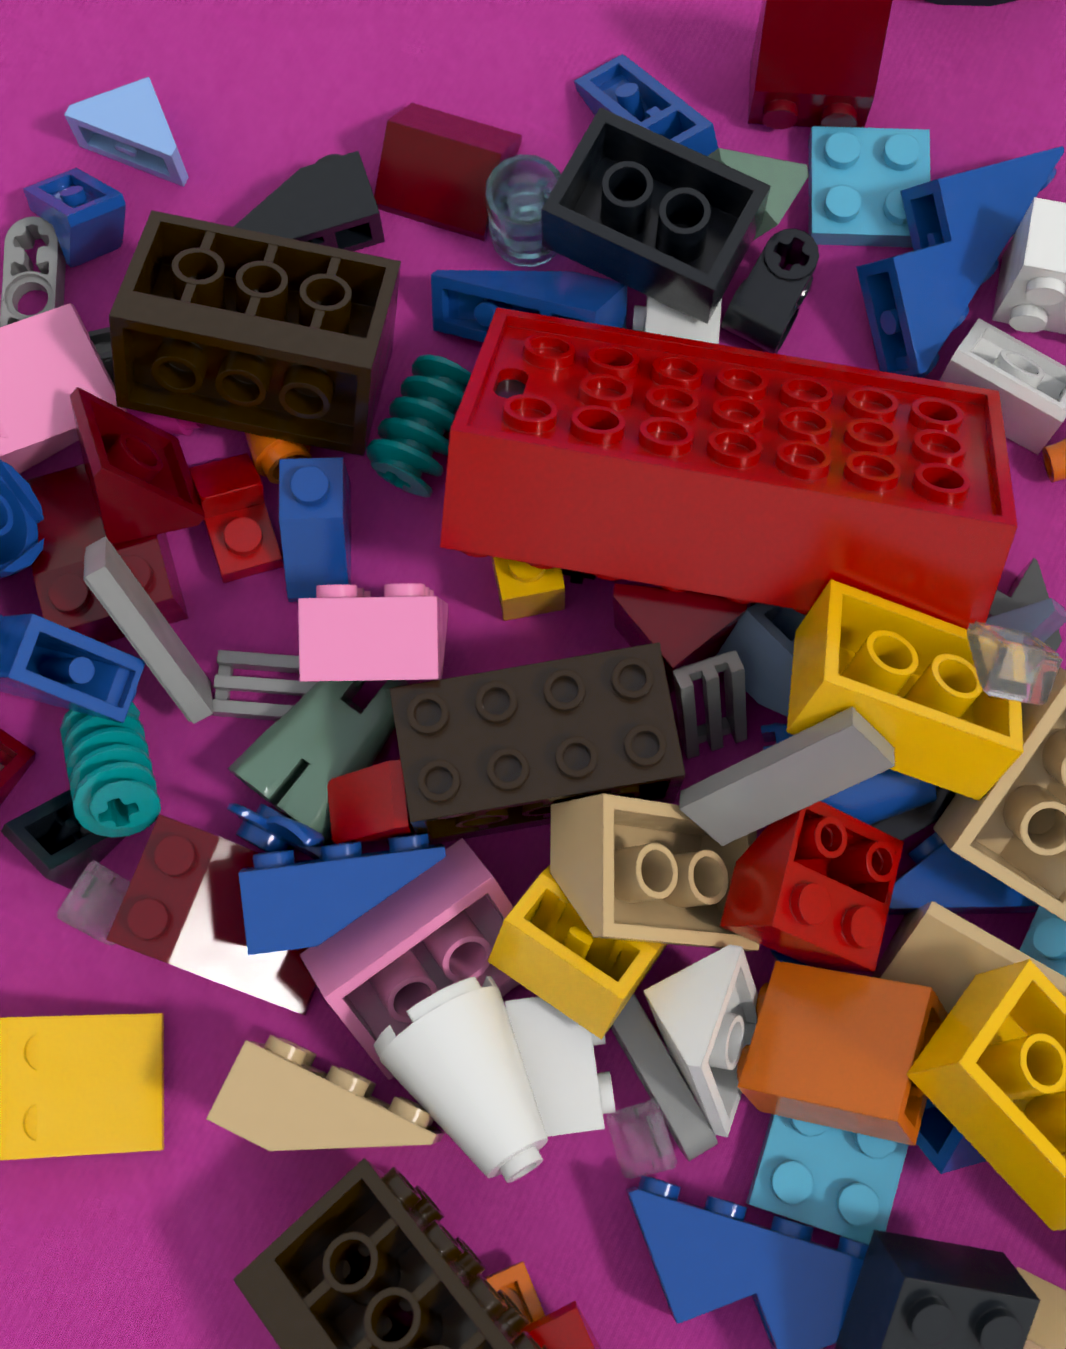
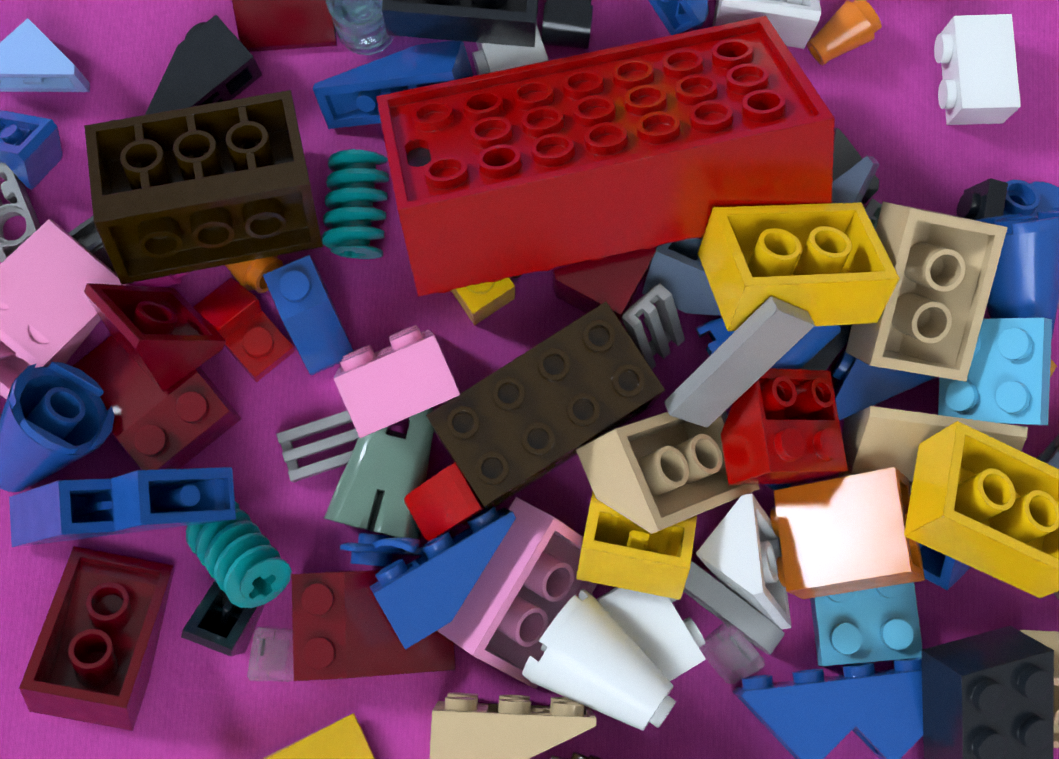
camera: 30 degrees left, 5 degrees up
(147, 630) = (222, 443): light grey tile -> none
(1012, 663) = (863, 215): clear slope -> none

